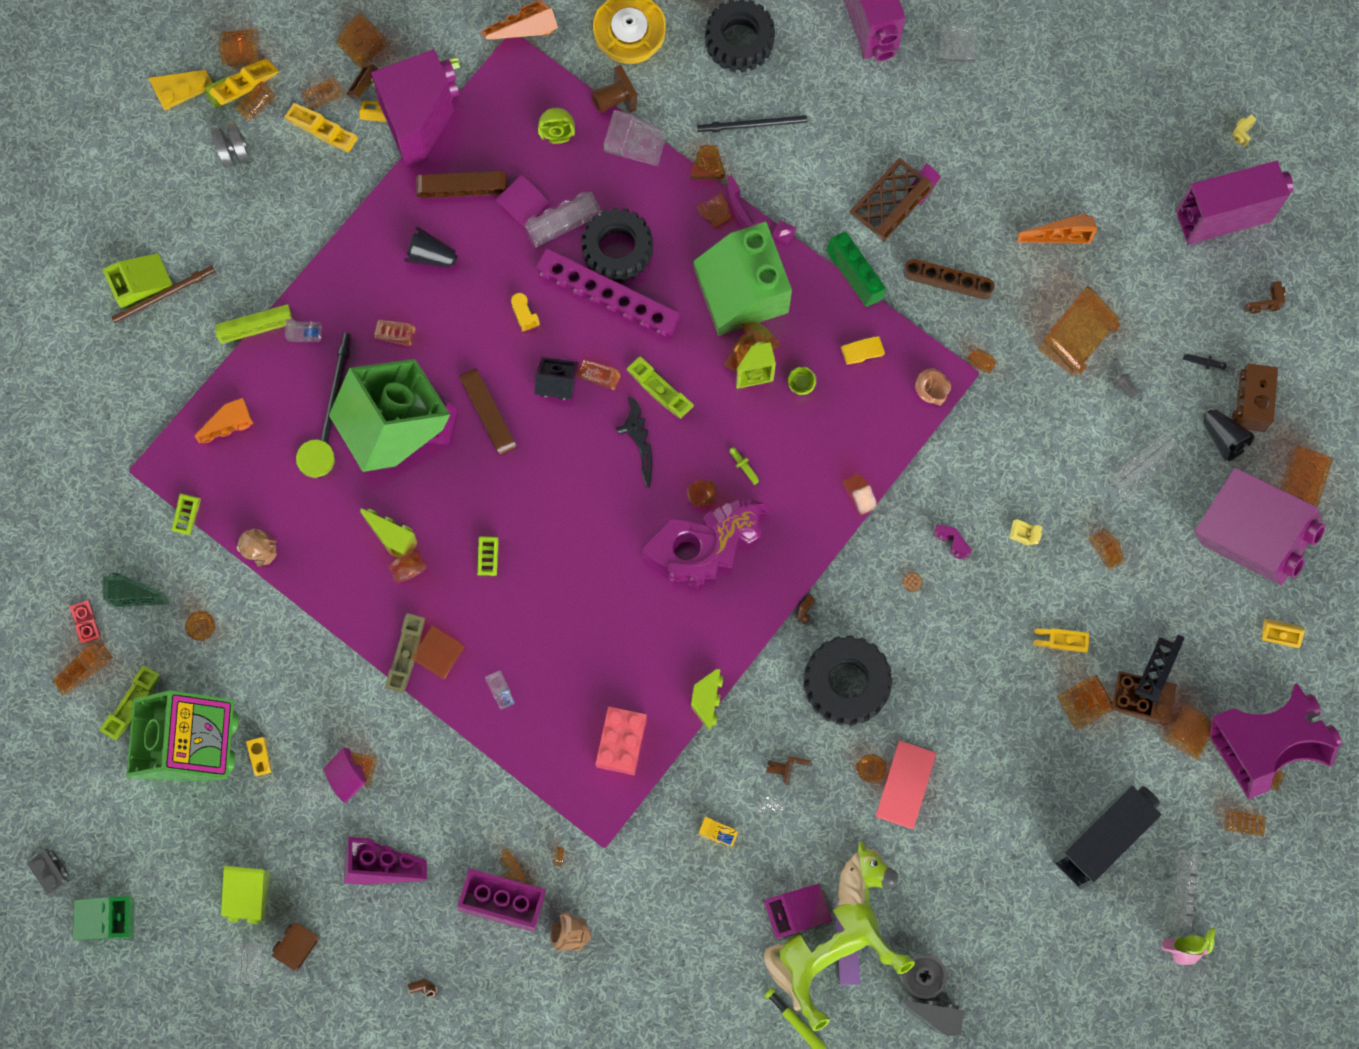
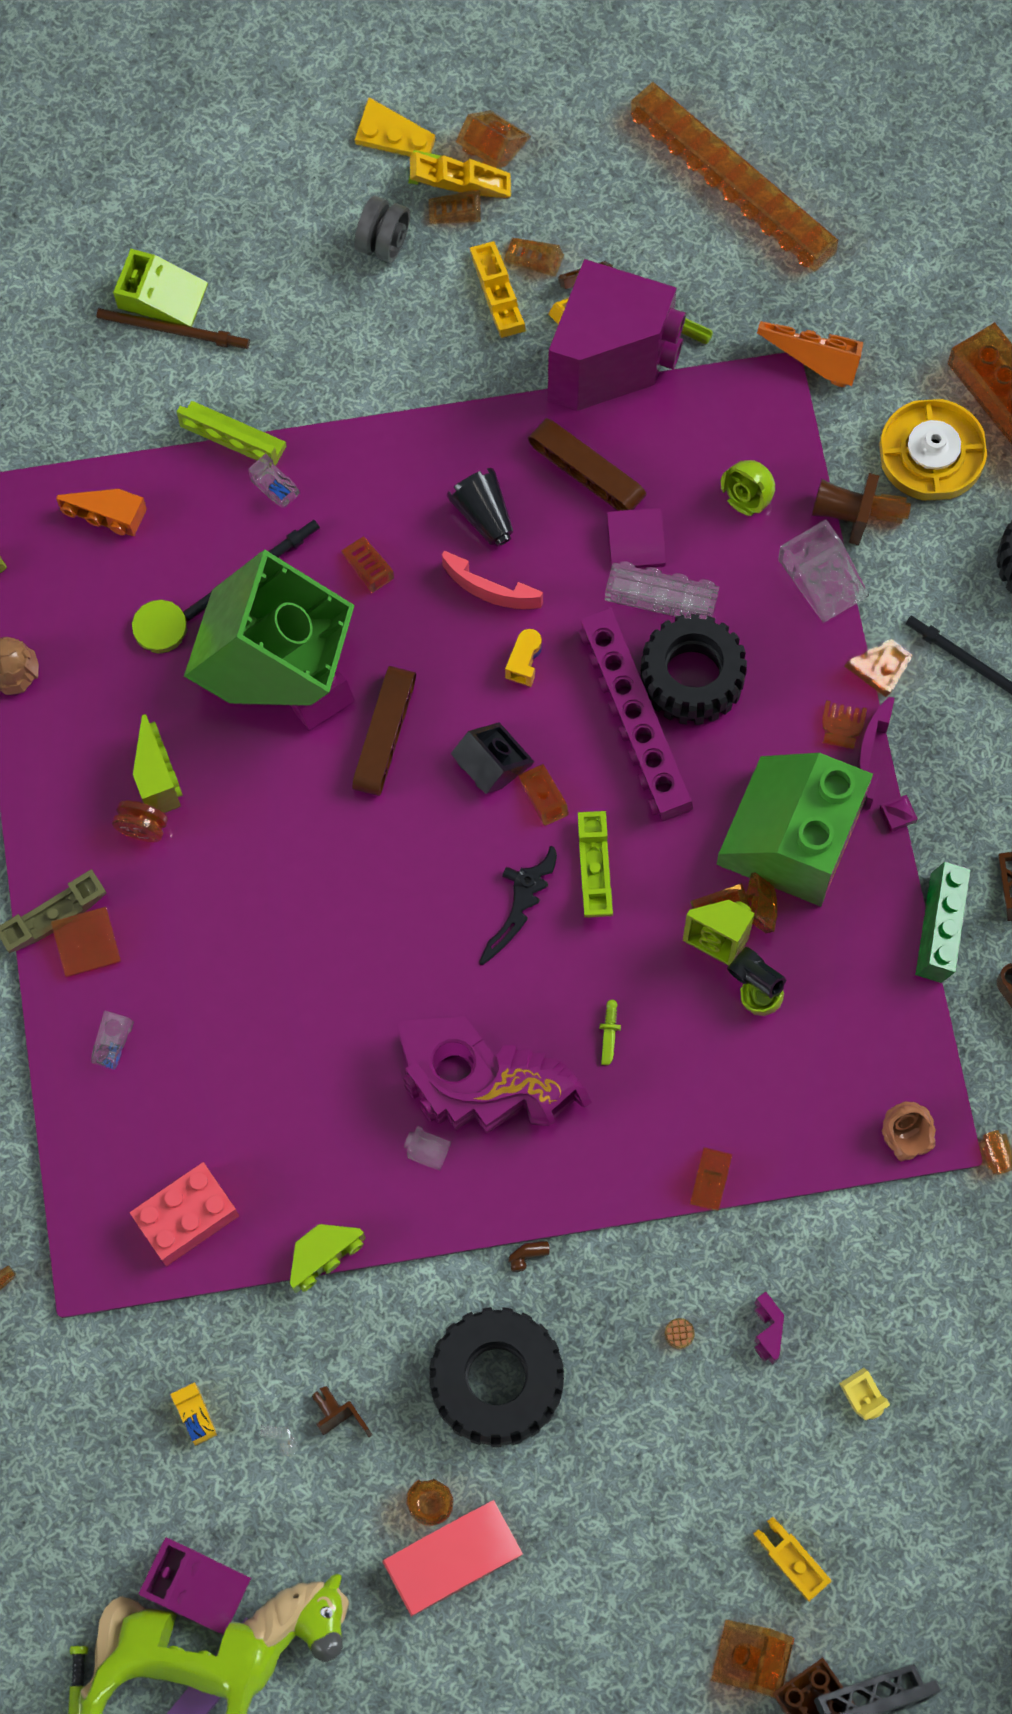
camera: 45 degrees right, 5 degrees down
(361, 40) = (625, 232): clear orange slope -> none
(472, 293) = (521, 598): none -> coral slope
(495, 540) = (245, 892): lime slope -> none
(638, 75) = (890, 508): none -> clear orange brick
(701, 493) = (530, 1020): clear orange hair -> none
(709, 602) = (426, 1148): none -> clear bracket
(788, 372) = (751, 969): none -> black piece
(863, 349) = (866, 1019): yellow slope -> none
(1107, 548) = (946, 1502): clear orange slope -> none

